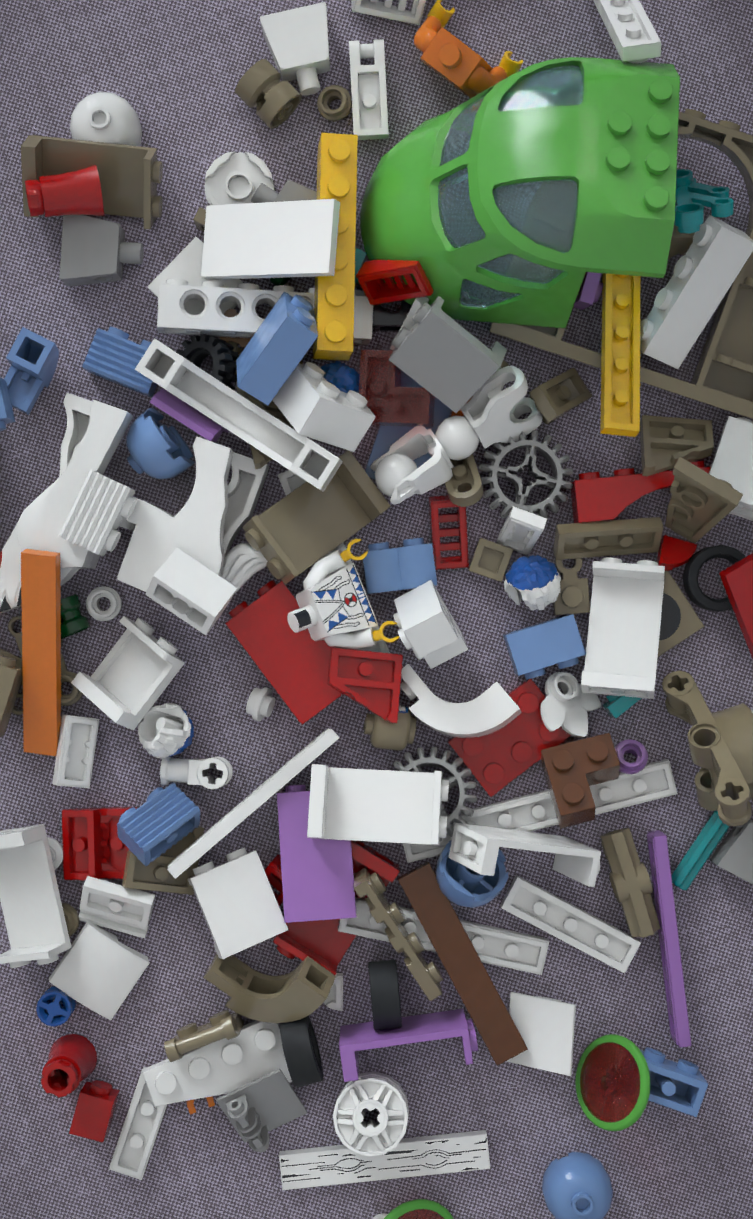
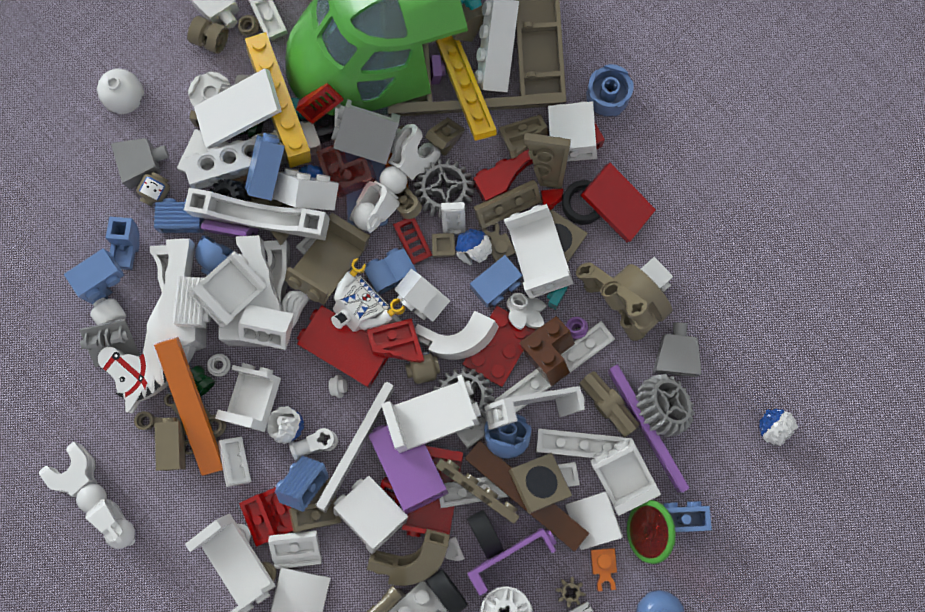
camera: 25 degrees left, 10 degrees down
(66, 194) = (108, 132): red plant -> none
(101, 304) = (153, 188): none -> head
(125, 172) = (120, 120): dark tan panel -> none
(156, 517) = (228, 289): none -> white panel
(472, 1123) = (577, 592): none -> dark tan gear
(488, 956) = (540, 483): none -> dark tan tile
(529, 1093) = (604, 564): none -> orange plate
(609, 994) = (625, 476): none -> white panel
(699, 852) = (645, 359): teal axle -> none
(707, 920) = (665, 405): none -> light grey gear

